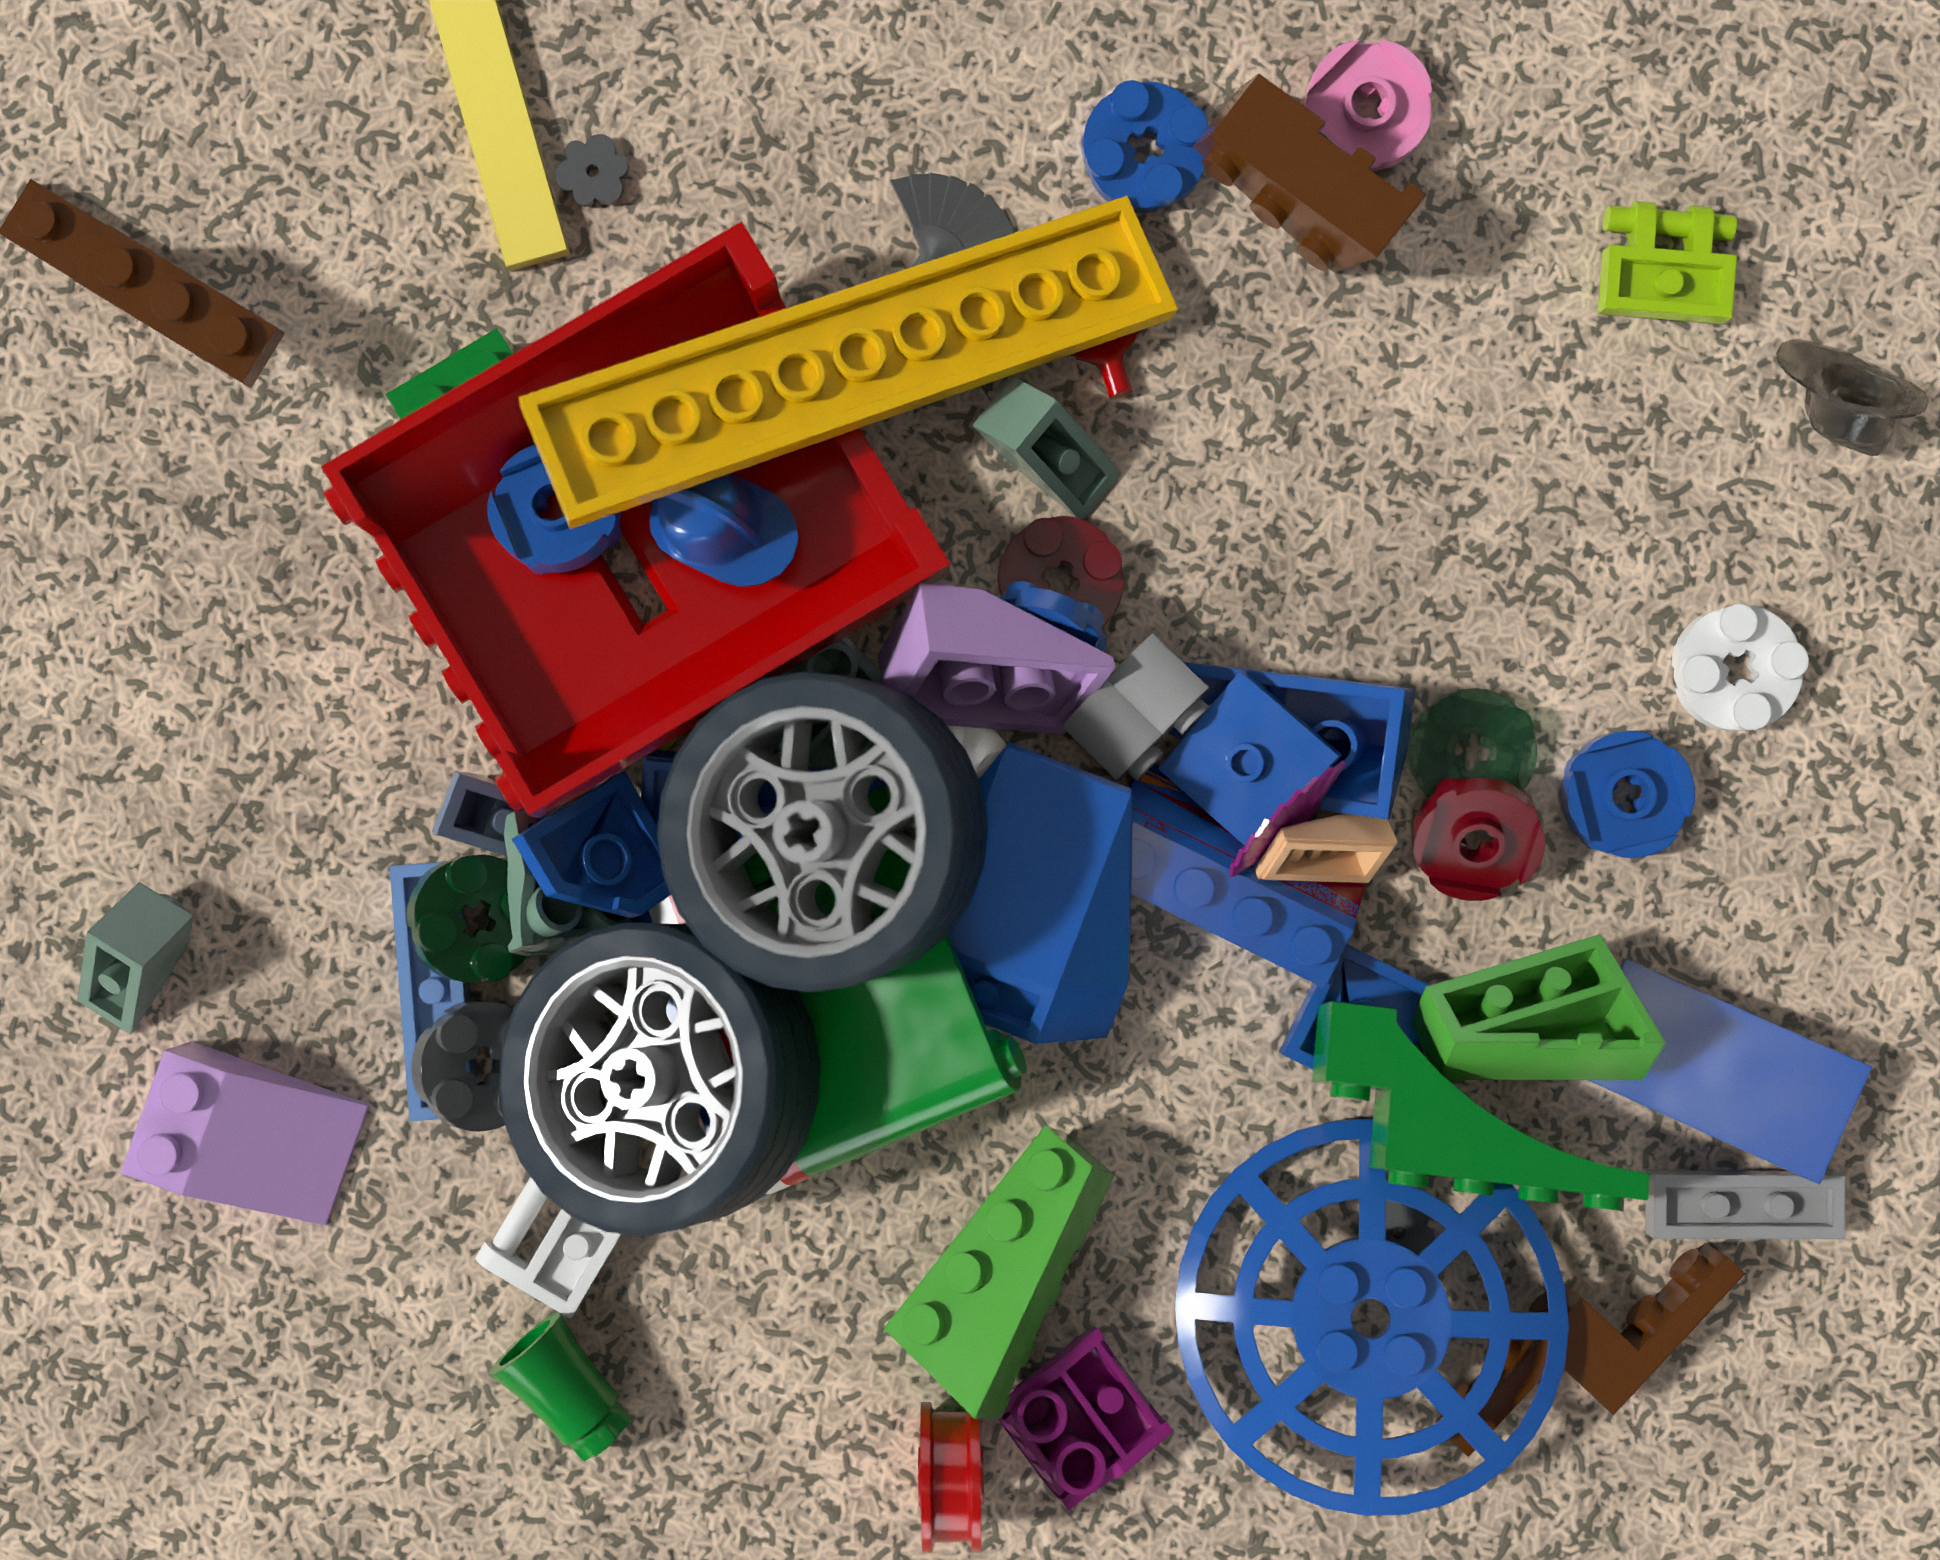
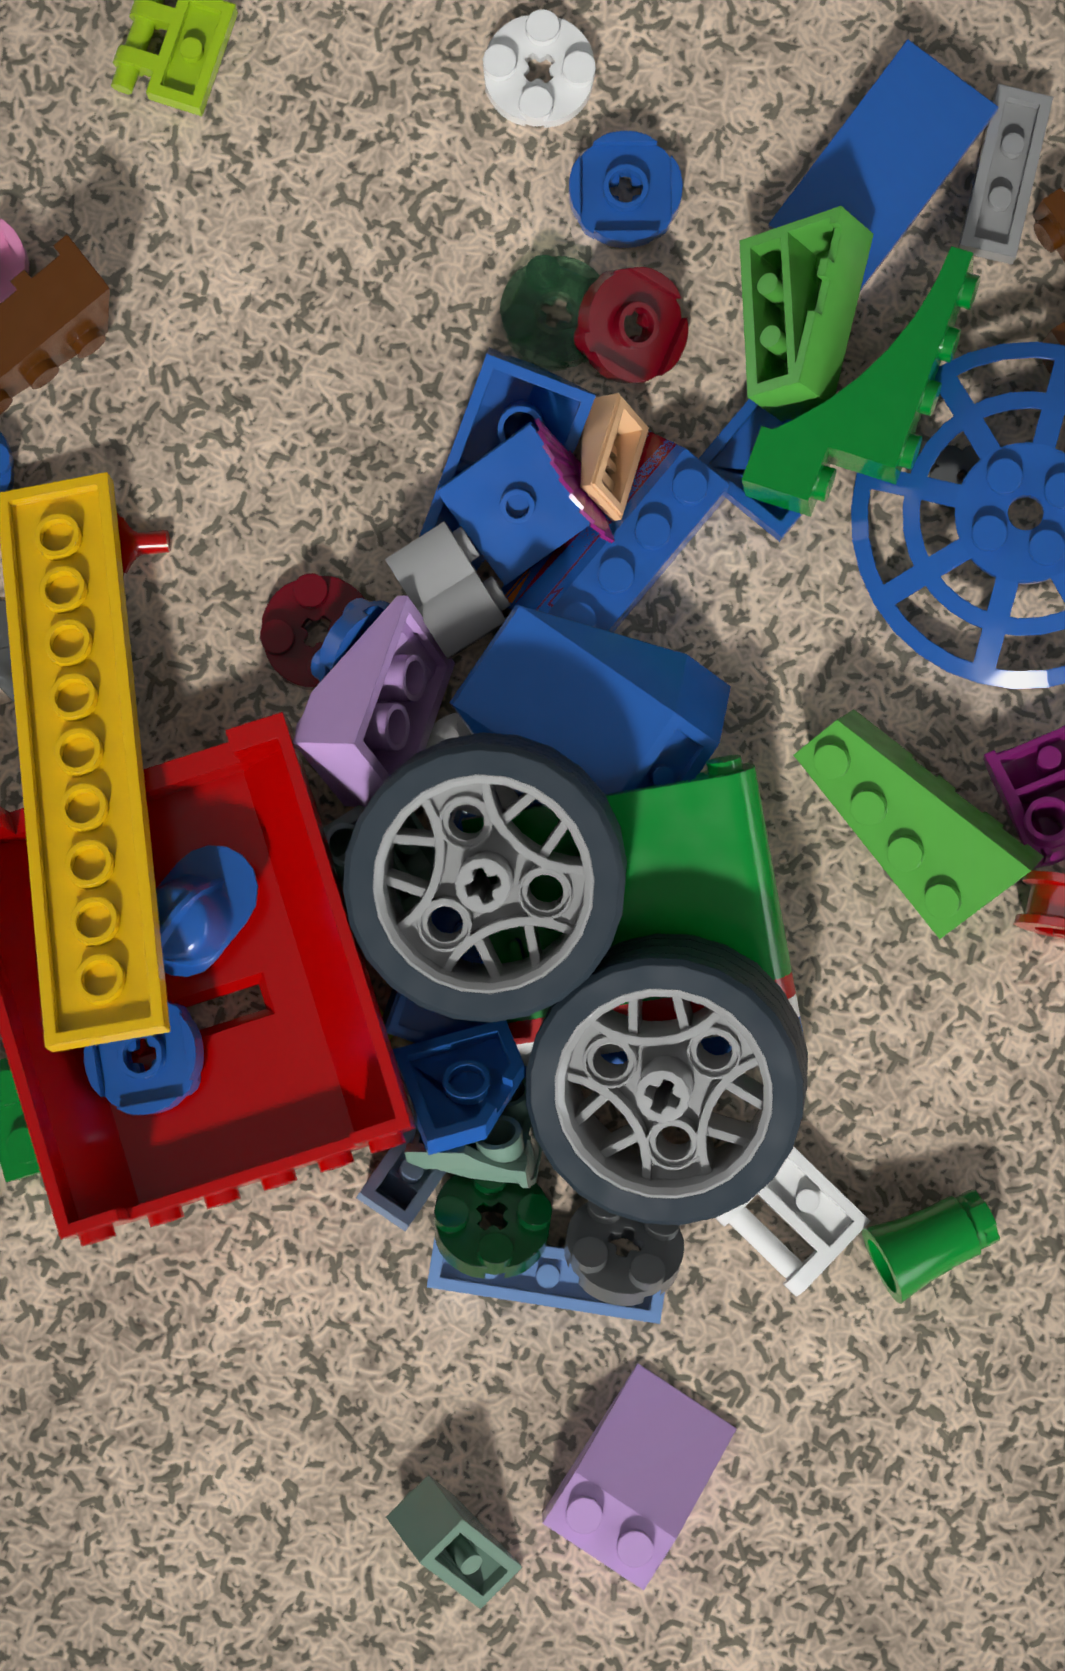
camera: 80 degrees left, 5 degrees down
(1047, 446) = (198, 614): sand green slope -> none

